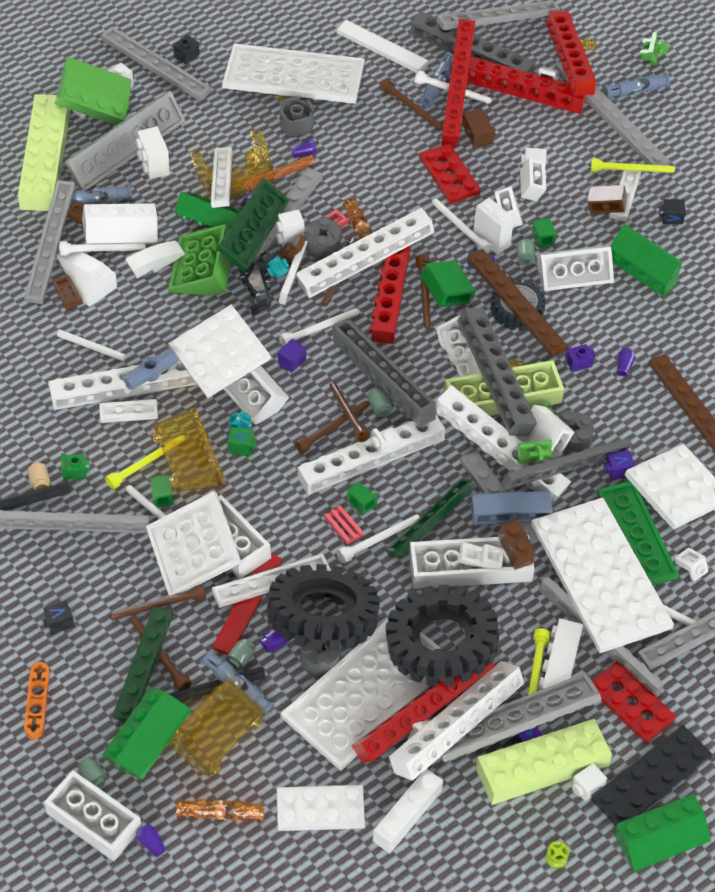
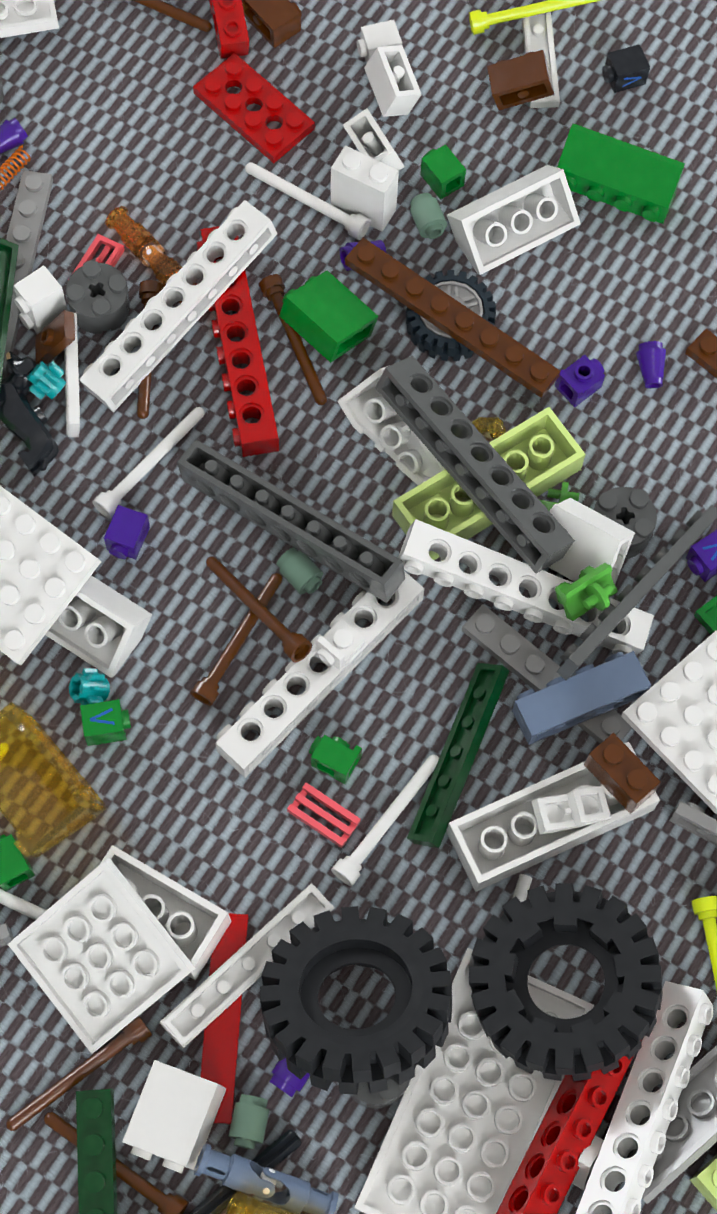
camera: 20 degrees left, 15 degrees up
(200, 634) = (173, 1116): none -> white brick

